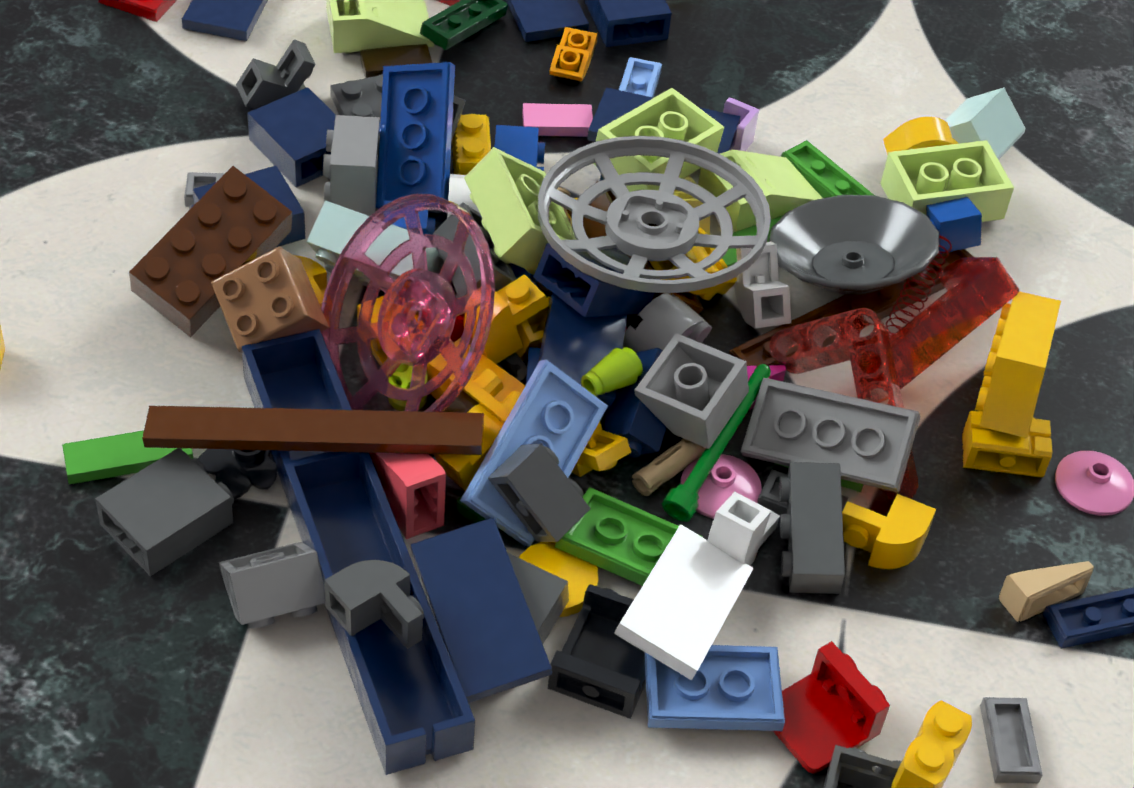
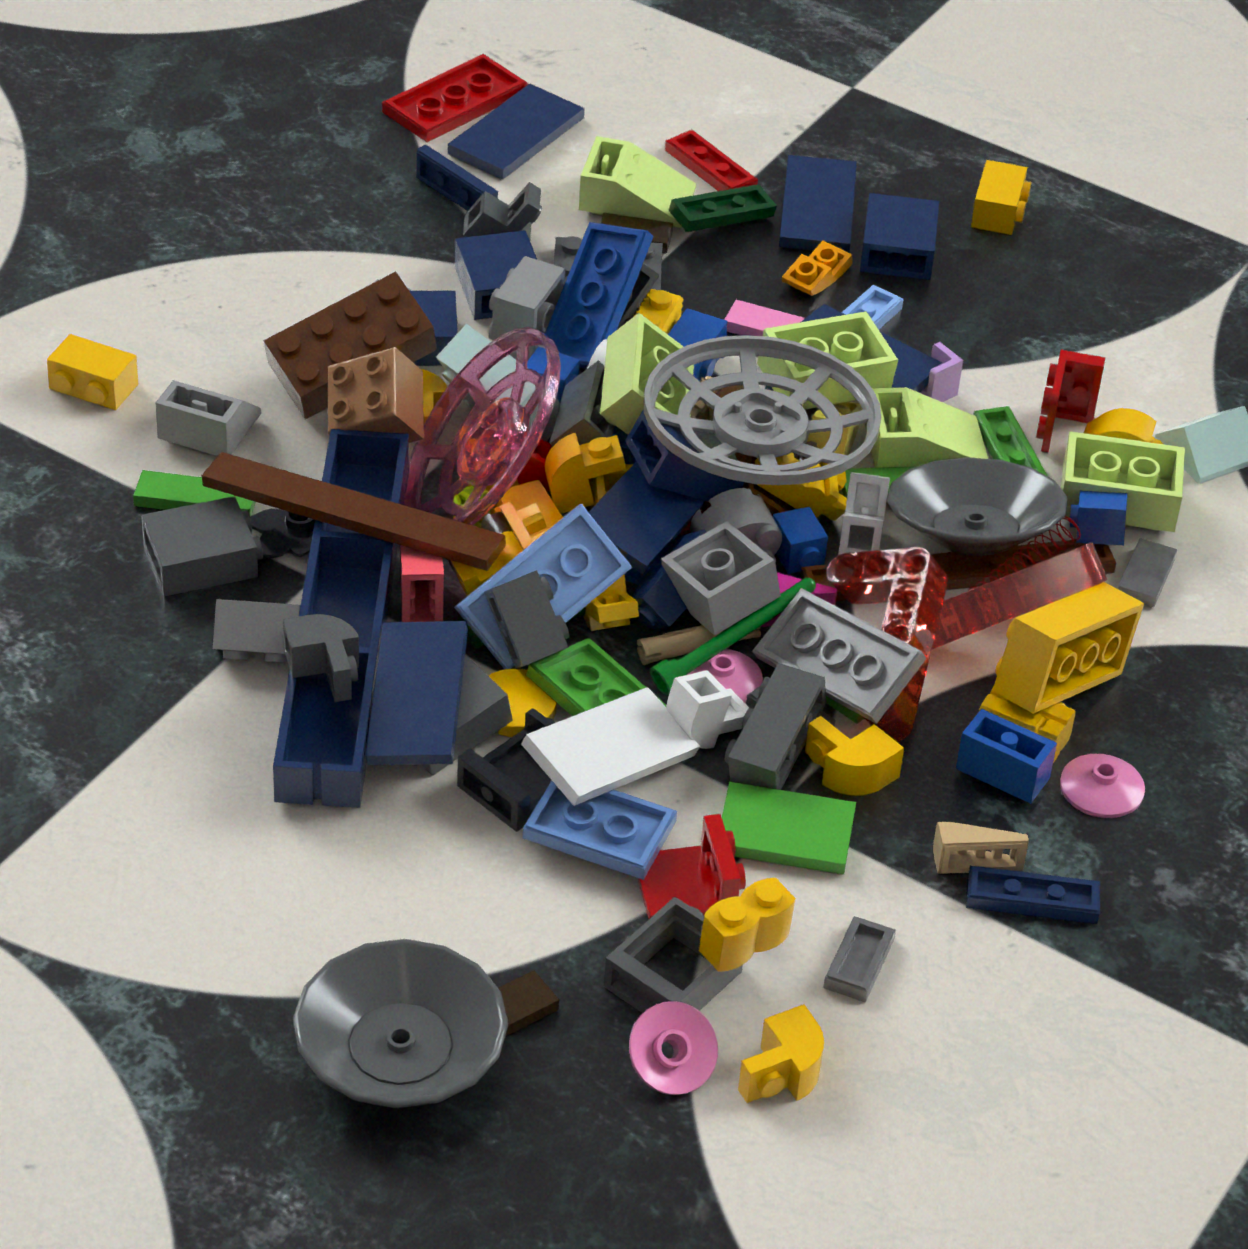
camera: 25 degrees right, 5 degrees down
(99, 370) = (203, 418): none -> light grey slope
(206, 54) = (449, 178): none -> dark blue tile
(613, 372) = (650, 540): lime cone -> none
(725, 320) = (802, 539): none -> blue brick
(858, 117) = (1073, 394): none -> red bracket
(872, 622) = (789, 827): none -> bright green tile
(1011, 254) = (1147, 571): none -> flat silver tile
(1019, 485) = (1006, 755): none -> blue brick

